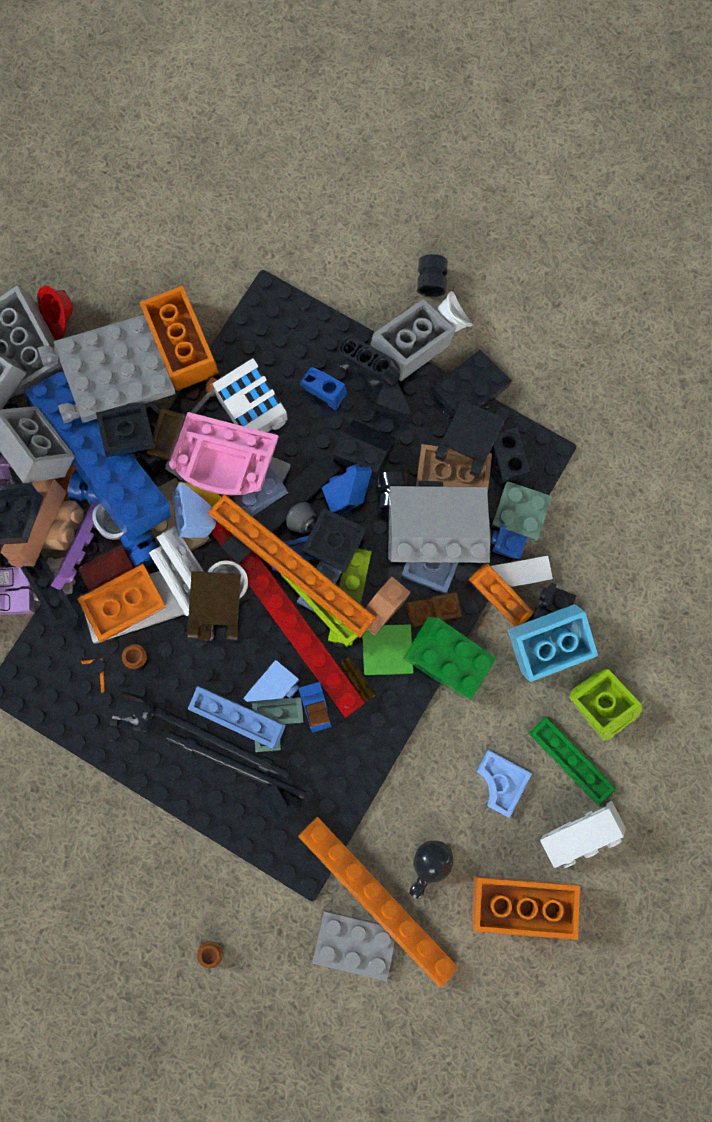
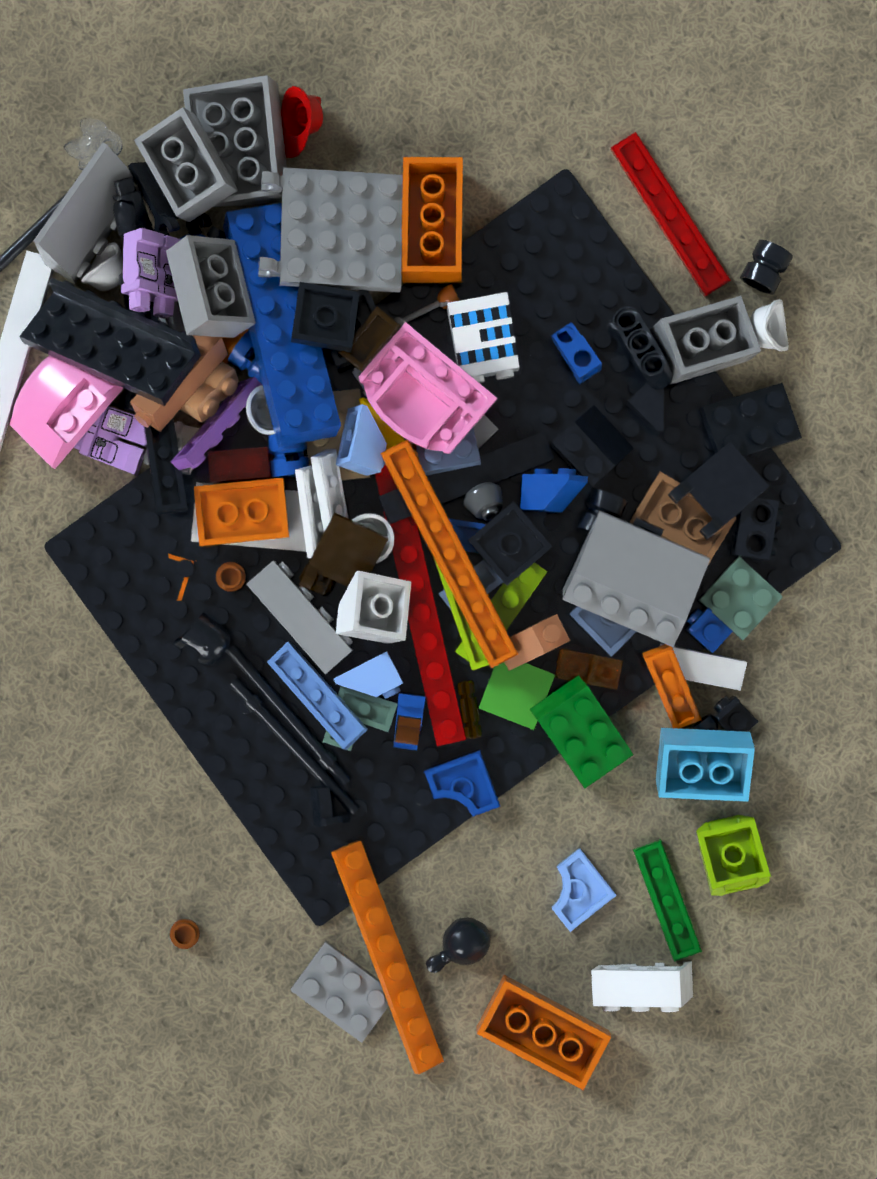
camera: 25 degrees right, 10 degrees up
(199, 663) = (299, 616): none -> light grey brick
(252, 631) = (374, 608): none -> white slope
(349, 271) = (670, 214): none -> red tile
(378, 735) = (465, 781): none -> blue tile

